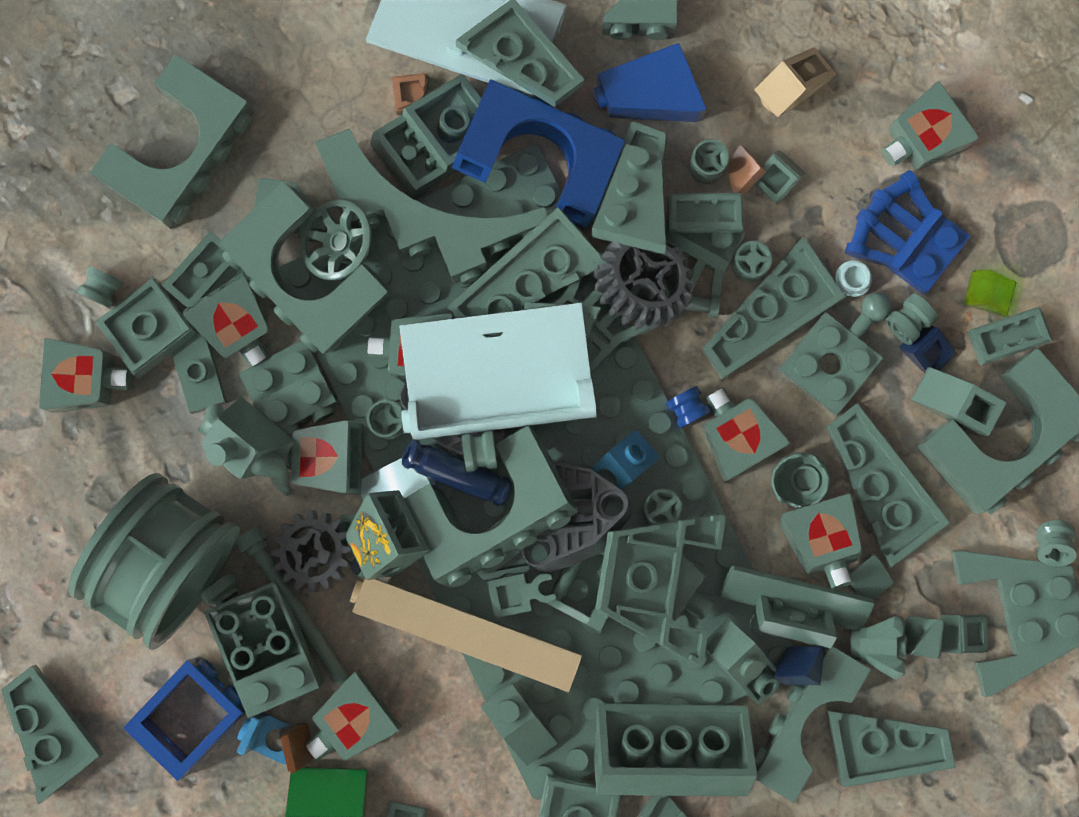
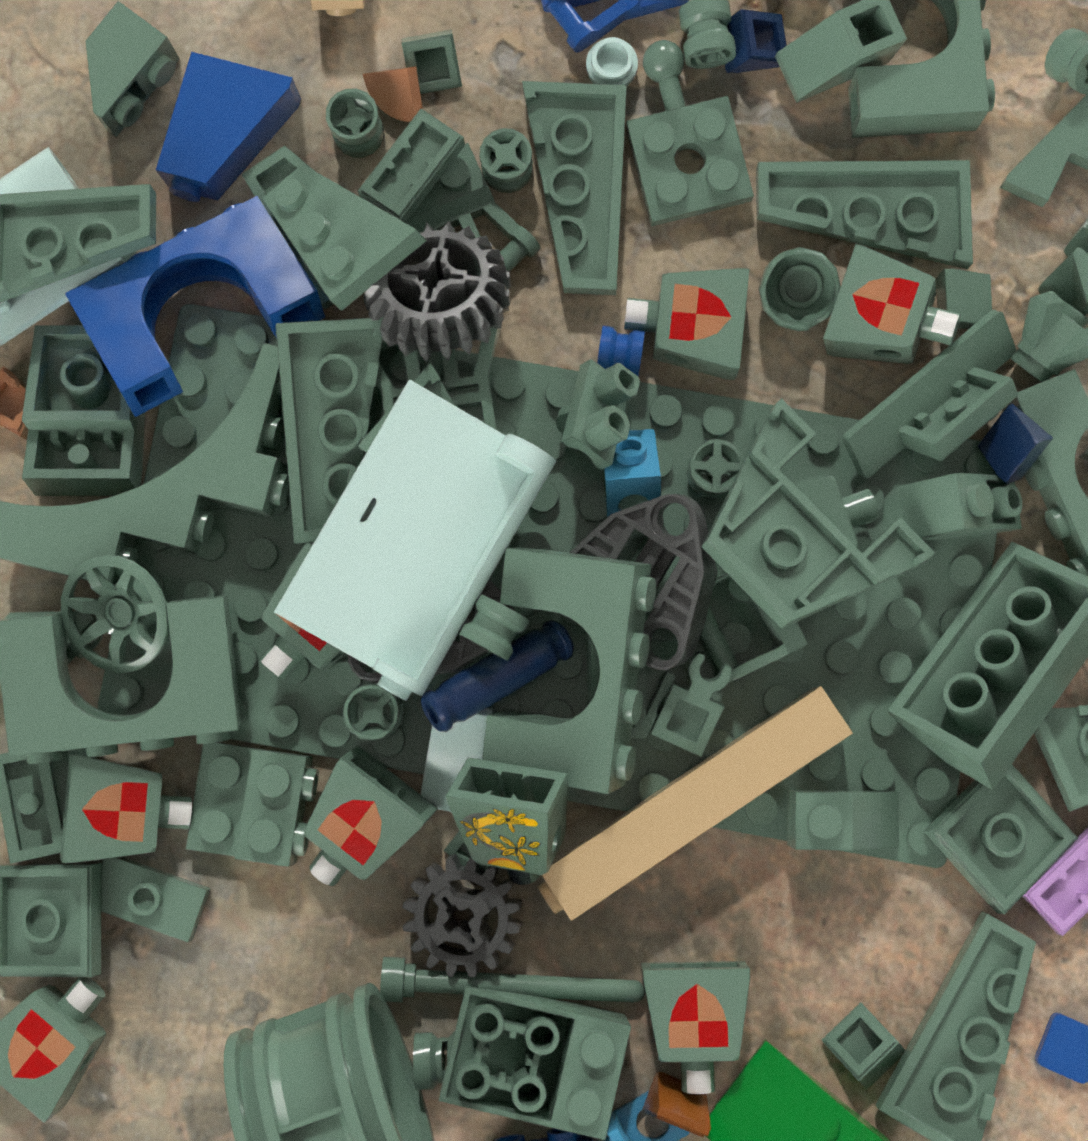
camera: 45 degrees left, 0 degrees up
(246, 443) = (275, 900): sand green torso -> none
(640, 419) = (596, 412): none -> sand green hips

